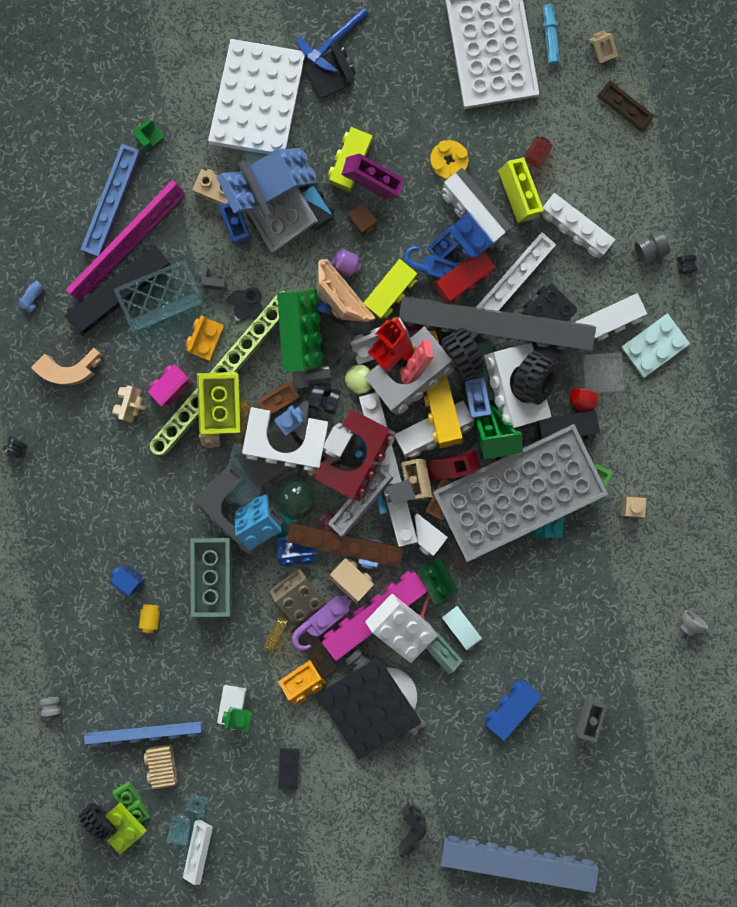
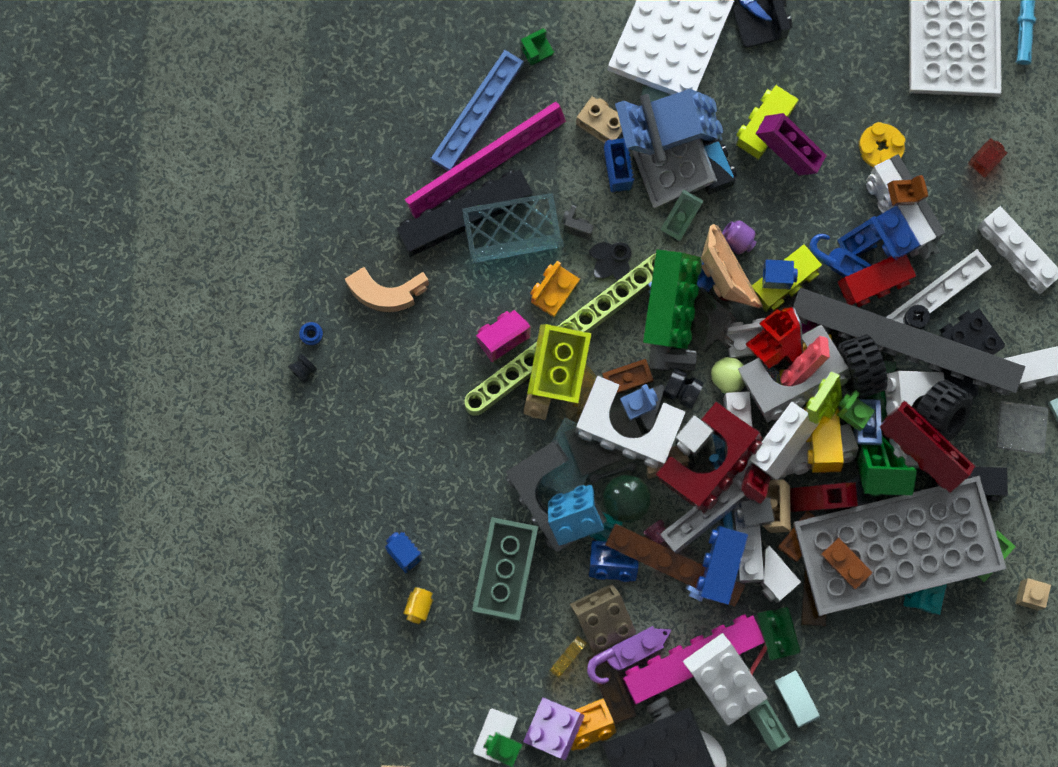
camera: 10 degrees right, 10 degrees down
(10, 416) = (311, 326): none -> blue plate
(30, 295) = (361, 197): medium blue arm -> none
(50, 706) = (274, 687): light grey wheel -> none
(130, 405) = (451, 347): tan hips -> none
(136, 734) = (392, 747): medium blue plate -> none
(275, 693) = (554, 728): none -> plate
(295, 254) = (681, 215): none -> sand green plate
(351, 580) = (673, 610): tan brick -> none
(363, 220) = (768, 192): reddish brown brick -> none
(380, 539) = (721, 564): none -> blue brick
(383, 289) = (779, 274): none -> blue brick
(395, 469) = (755, 483): none -> dark red plate
(411, 429) = (783, 441): none -> white brick
(438, 391) = (826, 399): none -> lime plate
(464, 392) = (854, 411): none -> bright green bracket
(474, 199) = (907, 191): none -> dark orange bracket
(480, 517) = (846, 563): none -> dark orange plate
(499, 304) = (914, 320): none -> black wheel
(520, 190) = (960, 196): neon yellow brick -> none
(527, 411) = (927, 447): none -> dark red brick
(583, 400) = (994, 452): red hair -> none

